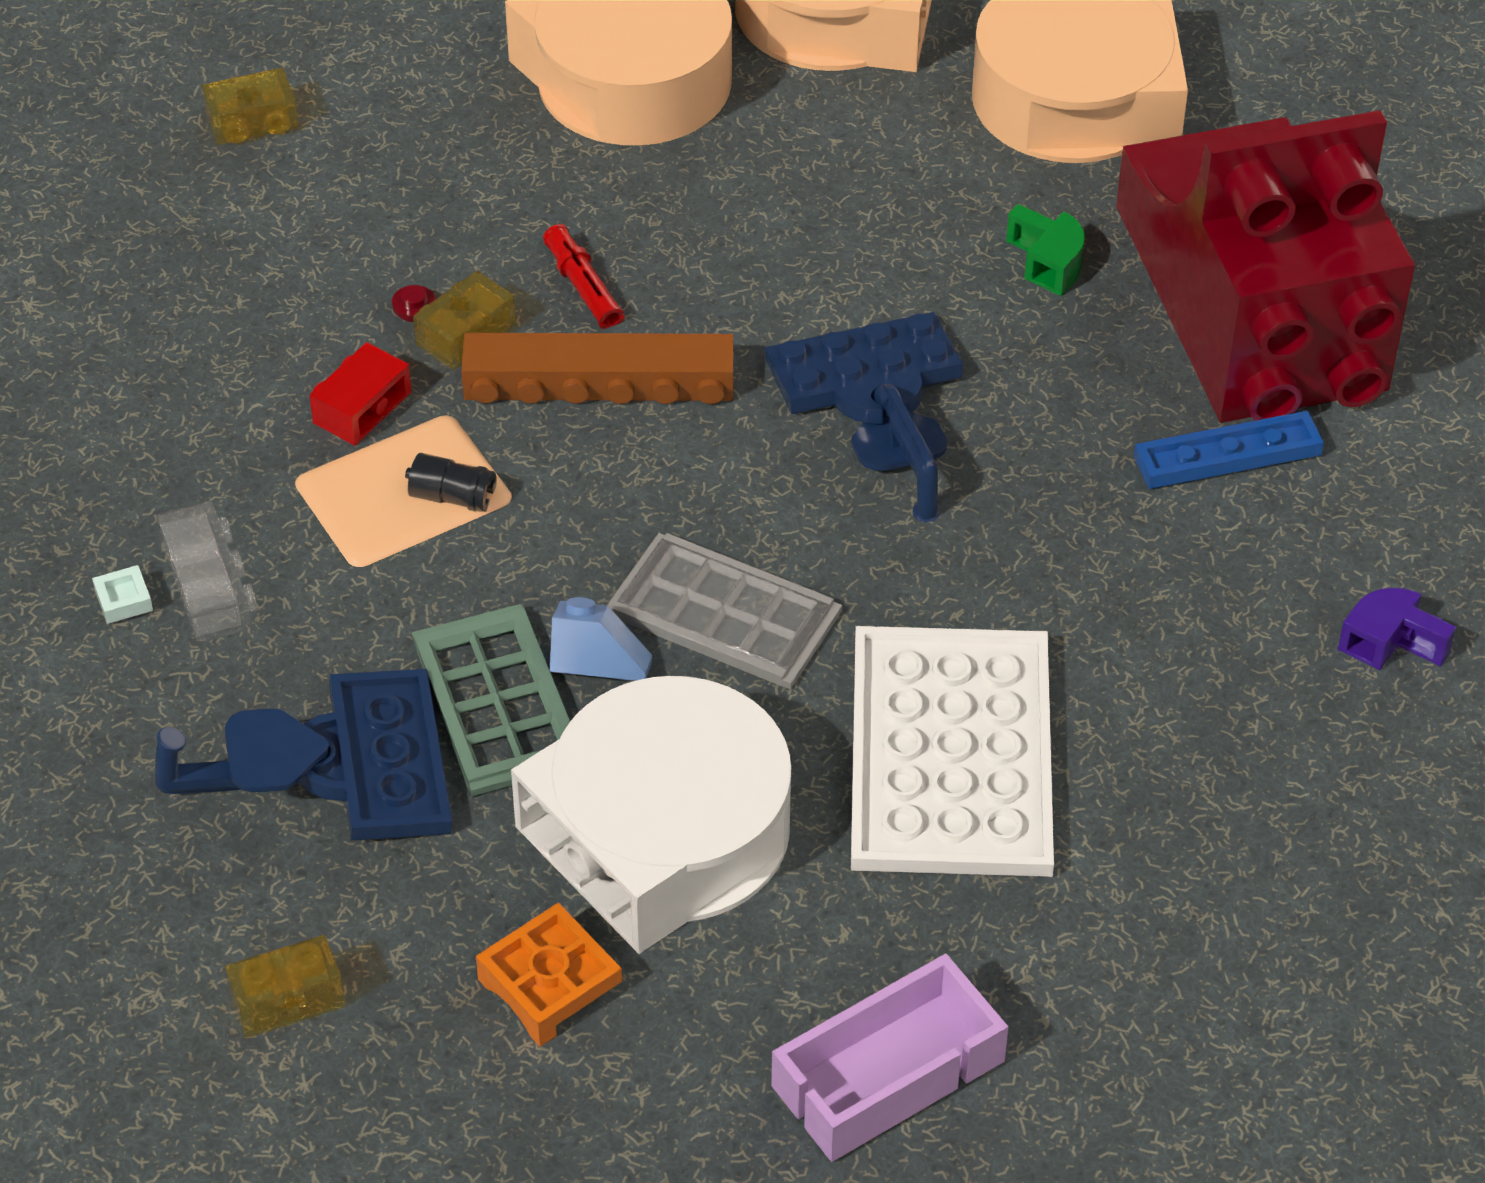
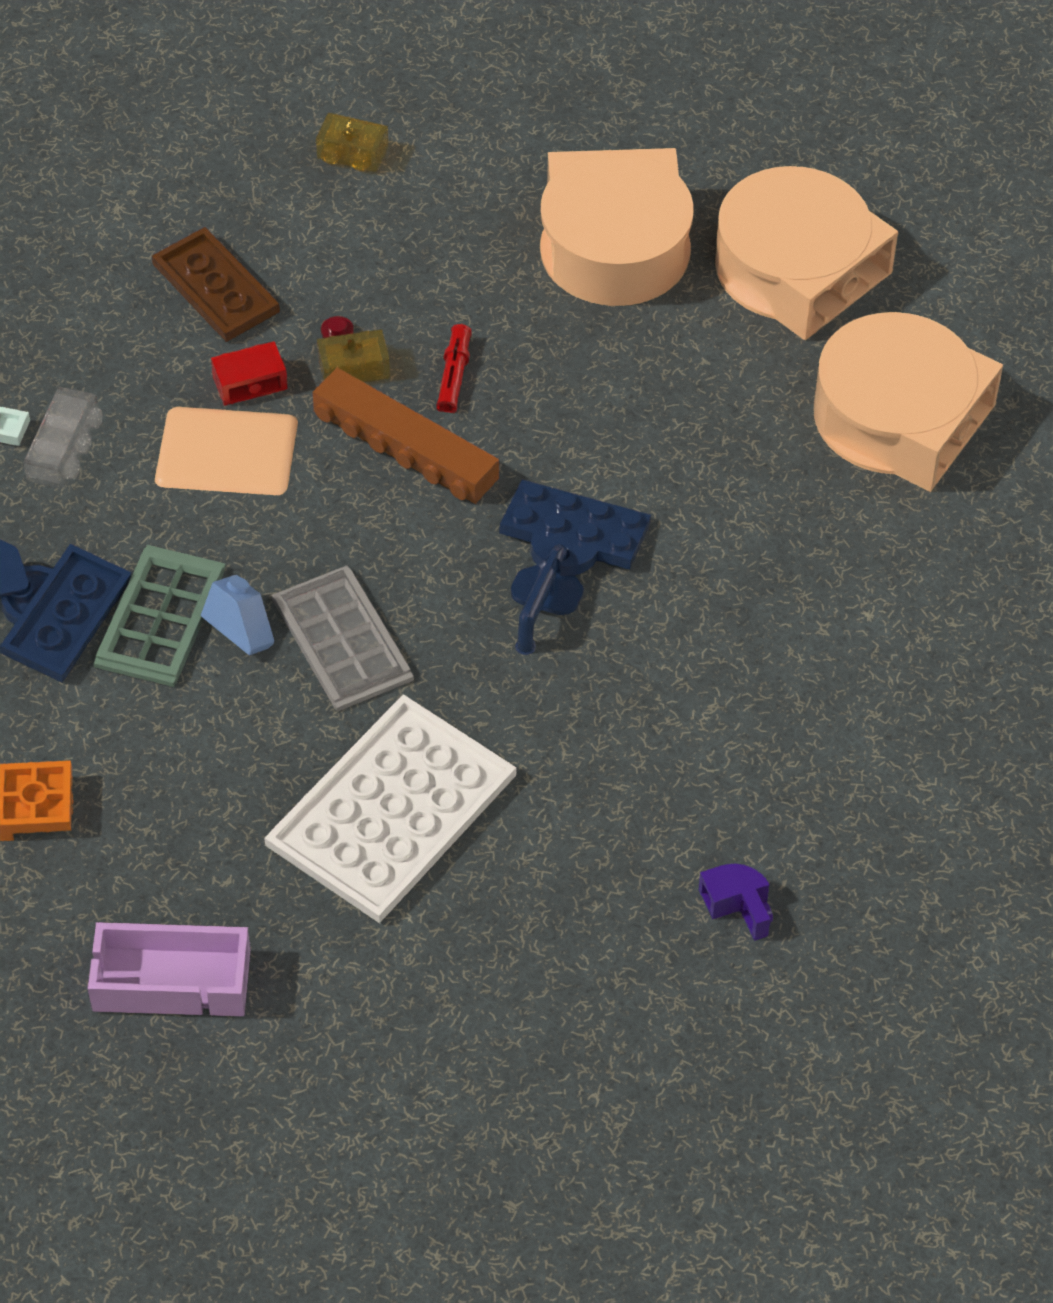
camera: 35 degrees right, 5 degrees up
(228, 323) = (215, 284): none -> reddish brown plate
(450, 482) = (250, 460): black piece -> none
(660, 803) = (181, 737): white brick -> none
(1051, 247) = (769, 516): green brick -> none
(1228, 449) = (752, 716): blue plate -> none
(1273, 259) = (874, 602): dark red arch -> none

